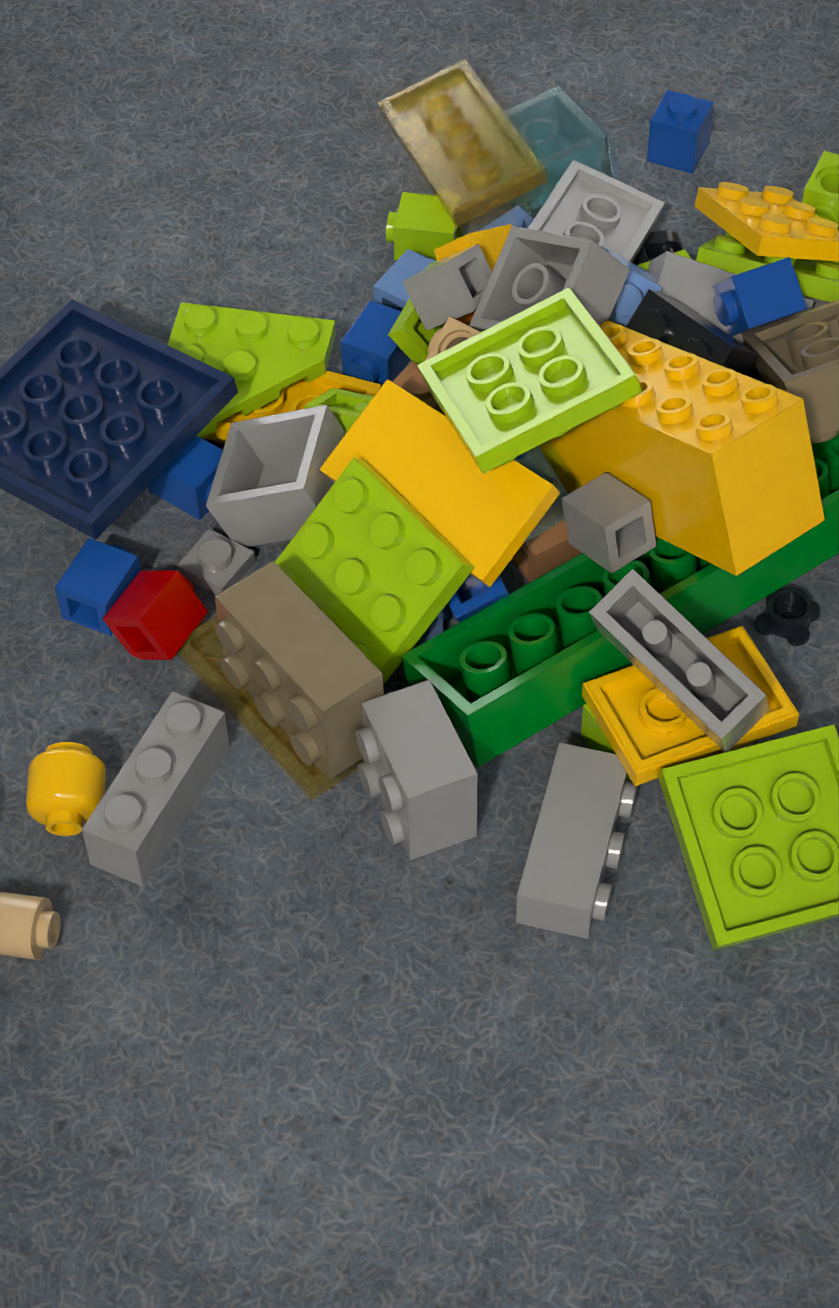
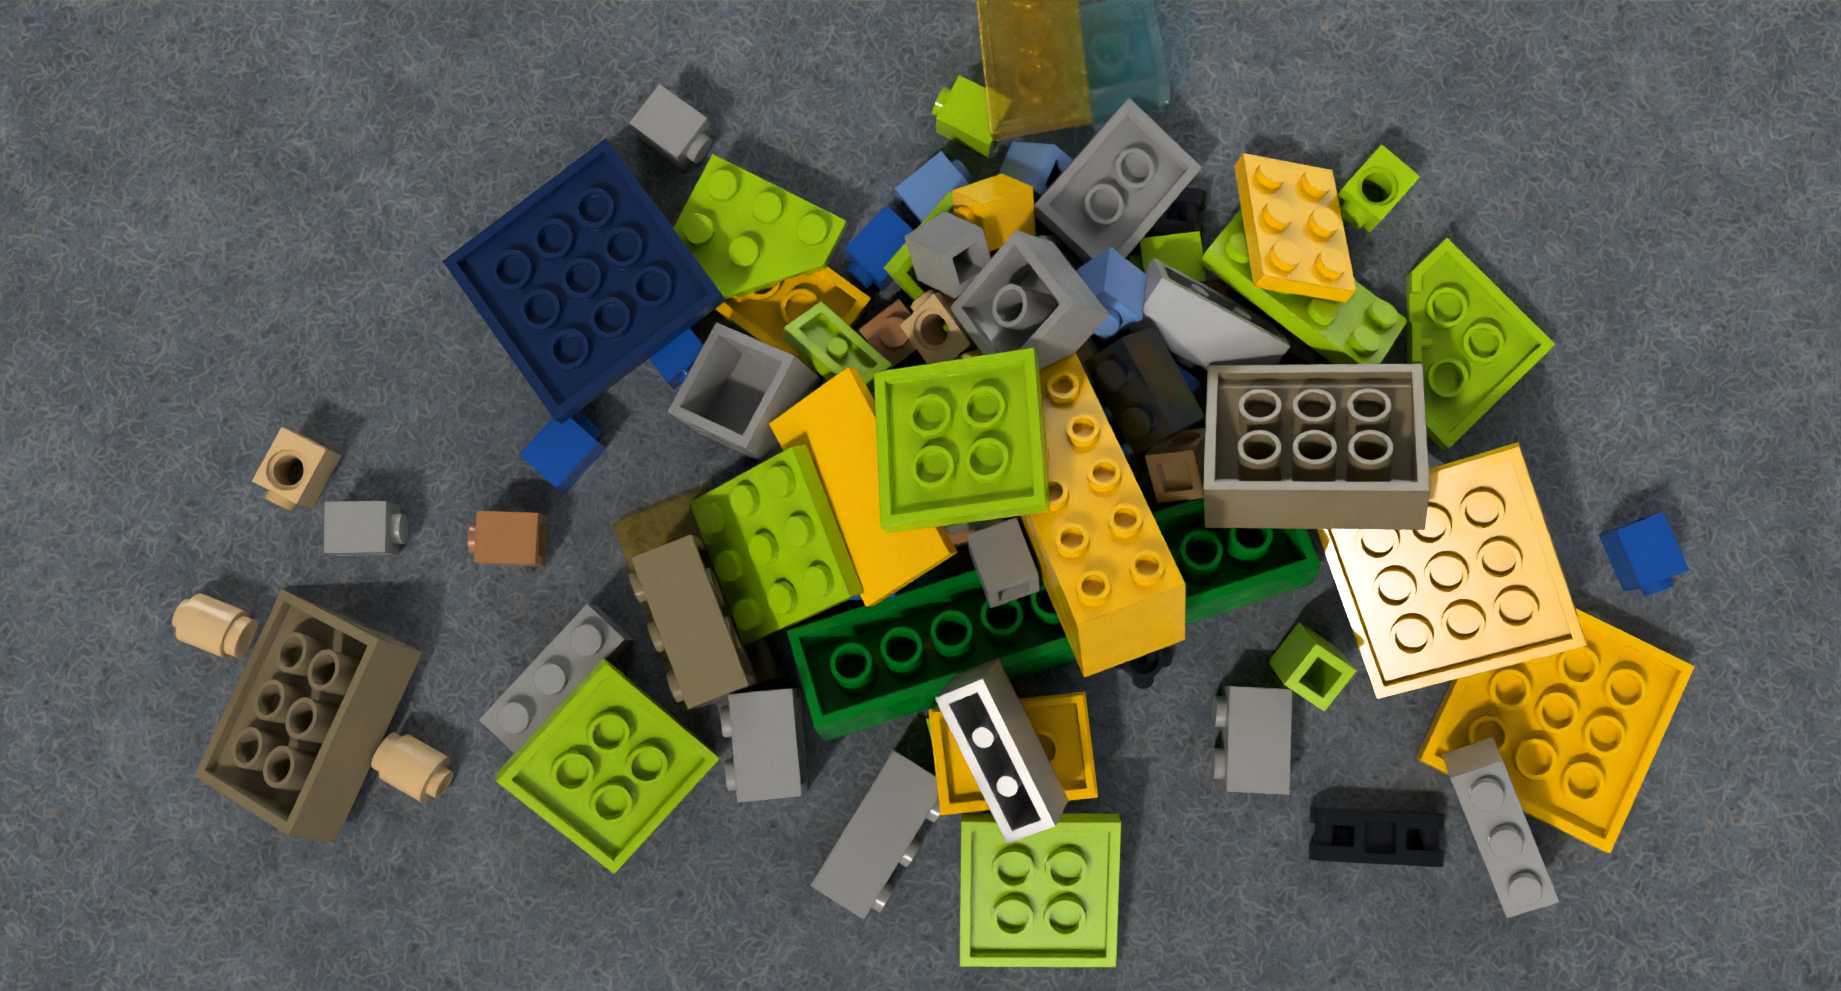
camera: 20 degrees right, 30 degrees up
(62, 678) = (509, 538): none -> medium nougat brick
(65, 787) = (484, 655): yellow head -> none
(133, 299) = (673, 128): none -> light grey brick
(155, 614) = (602, 500): red brick -> none
(216, 562) = (672, 447): light grey plate -> none
(243, 847) = (607, 766): none -> lime plate
(679, 131) = (1256, 64): blue brick -> none
(758, 297) = (1231, 348): blue brick -> none

